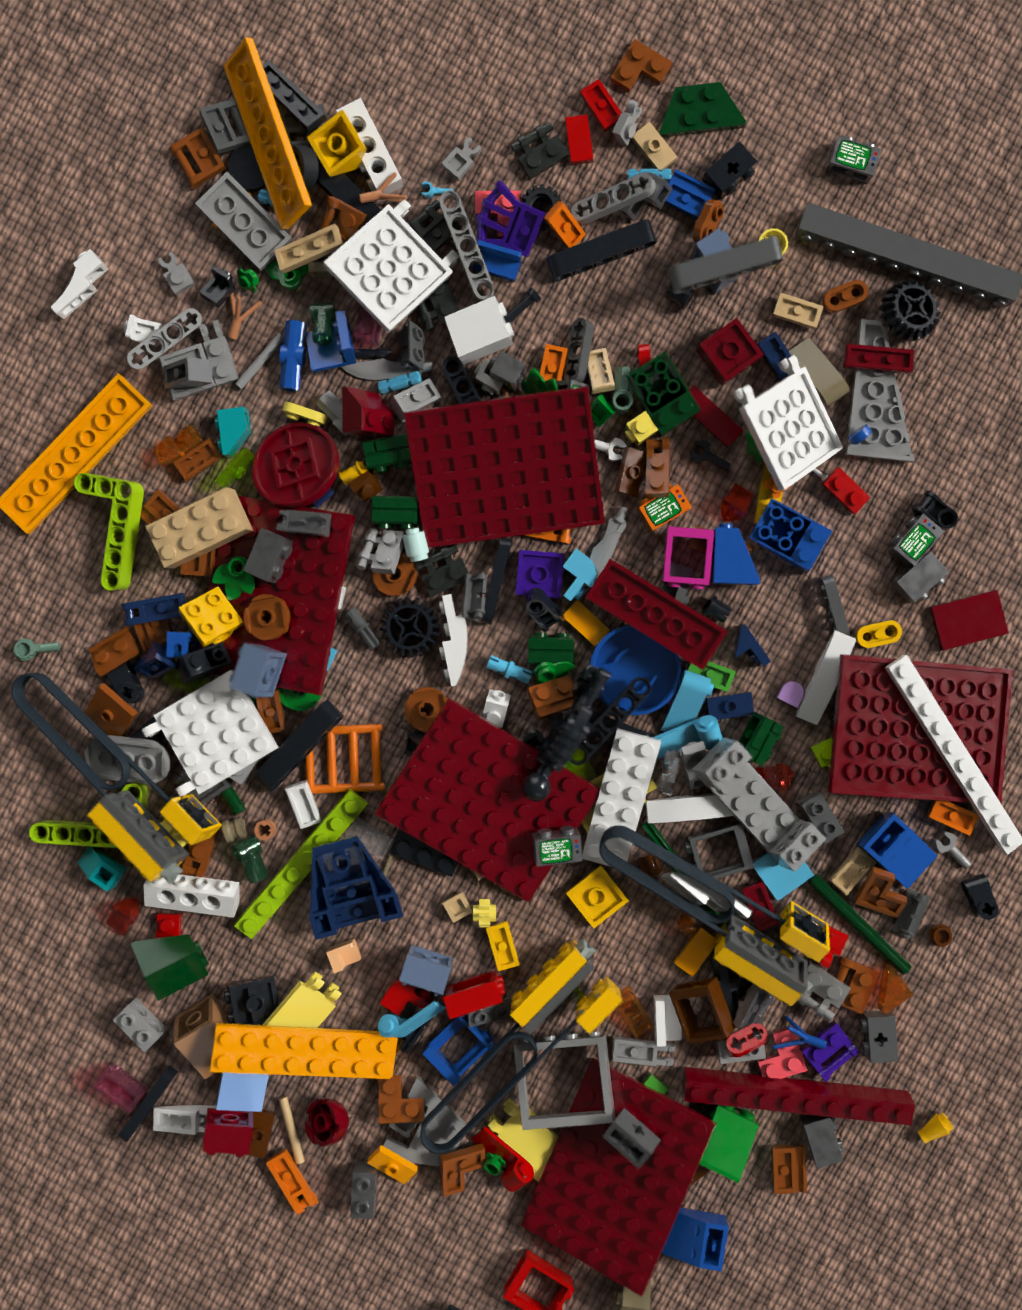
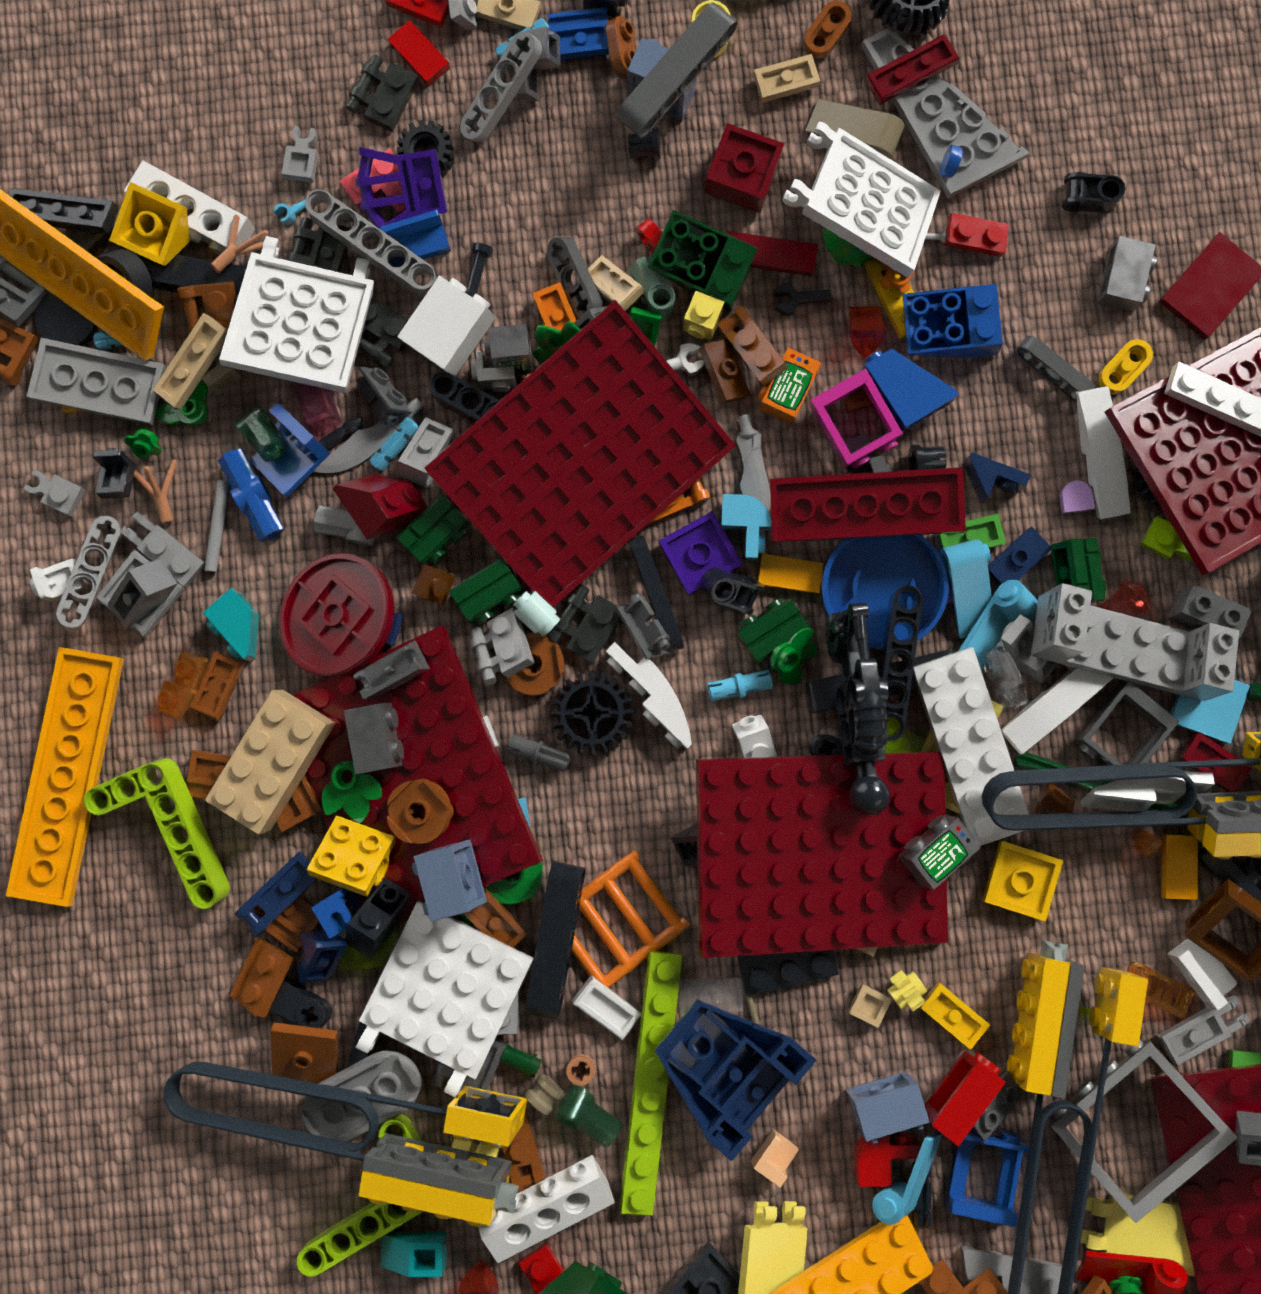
camera: 30 degrees left, 5 degrees down
(26, 649) = (154, 1046): sand green plate -> none
(236, 468) = (268, 665): clear neon green plate -> none
(295, 412) = (296, 554): light yellow plate -> none
(353, 472) = (407, 580): yellow pin -> none
(416, 702) = (657, 795): dark orange plate -> none
(552, 697) = (812, 681): dark orange plate -> none
(564, 225) = (466, 151): orange plate -> none
(601, 250) = (525, 153): black beam -> none
(774, 352) = (795, 139): dark blue plate -> none
(915, 540) = (1091, 237): brick -> none

